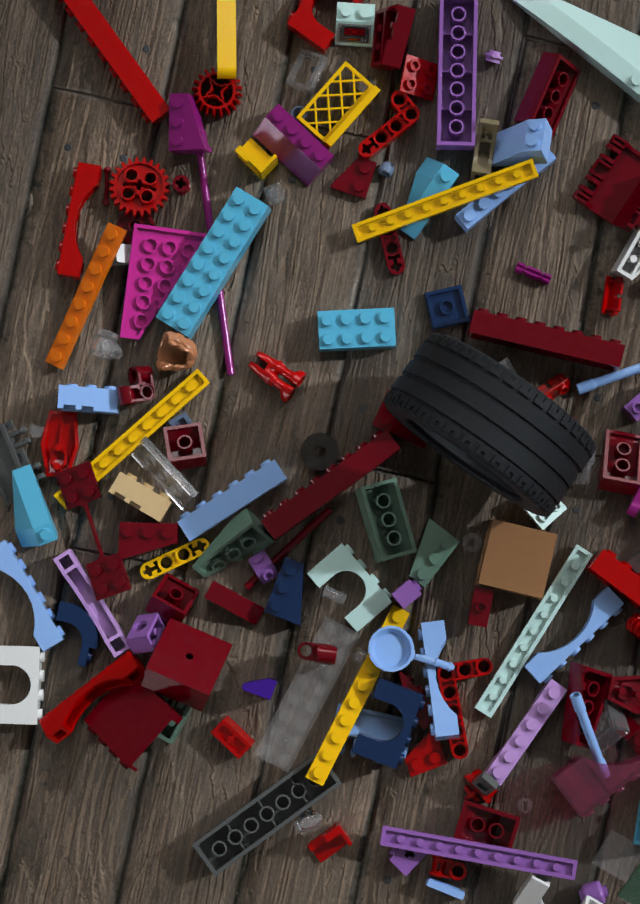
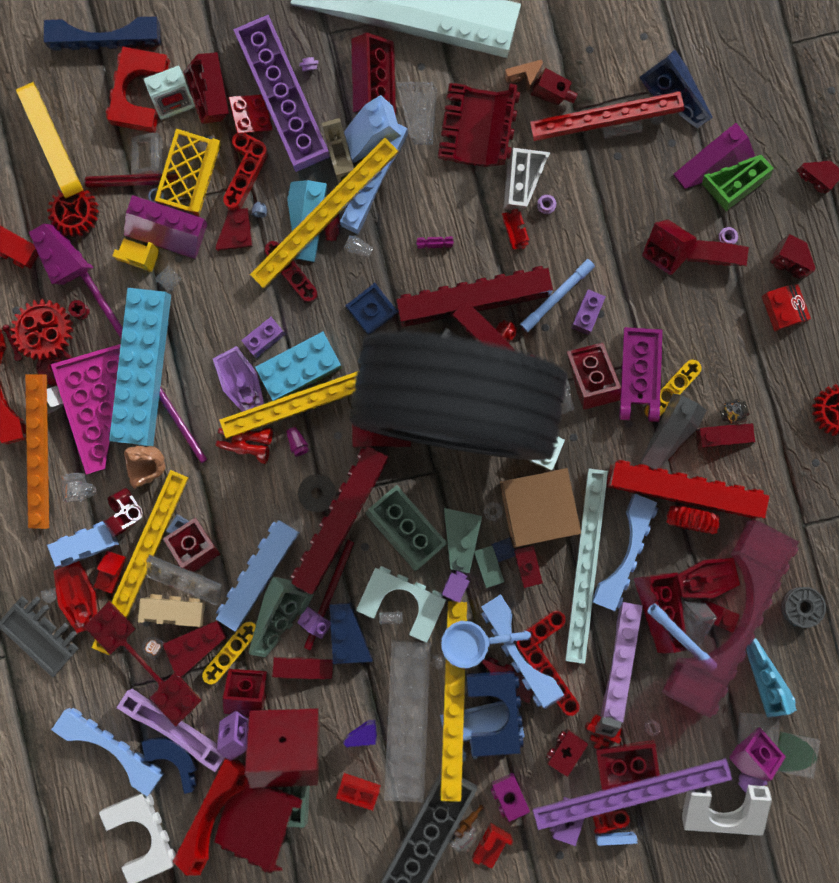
camera: 20 degrees left, 0 degrees up
(31, 515) = (79, 674): medium azure wedge -> none
(99, 435) = (109, 571): none -> red slope
(107, 520) = (152, 647): none -> tile
(280, 87) = (128, 180): none -> dark red axle
(296, 316) = (238, 379): none -> medium lavender piece
(316, 810) = (465, 825): none -> reddish brown piece
(319, 653) = (402, 679): dark red piece -> none
(323, 397) = (297, 443): none -> magenta cone
(333, 360) = (288, 406): none -> yellow plate
(337, 287) = (263, 337): none -> medium lavender brick
(366, 818) = (518, 806): none -> magenta brick
(425, 756) = (541, 726): red wing -> none
(432, 799) = (566, 762): none -> dark red brick
(444, 590) = (489, 566): none -> sand green tile
(445, 218) = (332, 229): none -> dark red cone
(460, 243) = (357, 246): none -> clear cone
(465, 581) = (503, 549): none -> dark blue plate
(537, 369) = (478, 326): none -> dark red slope
(575, 145) = (419, 110): none -> clear wedge
(608, 873) = (758, 756): none -> magenta slope

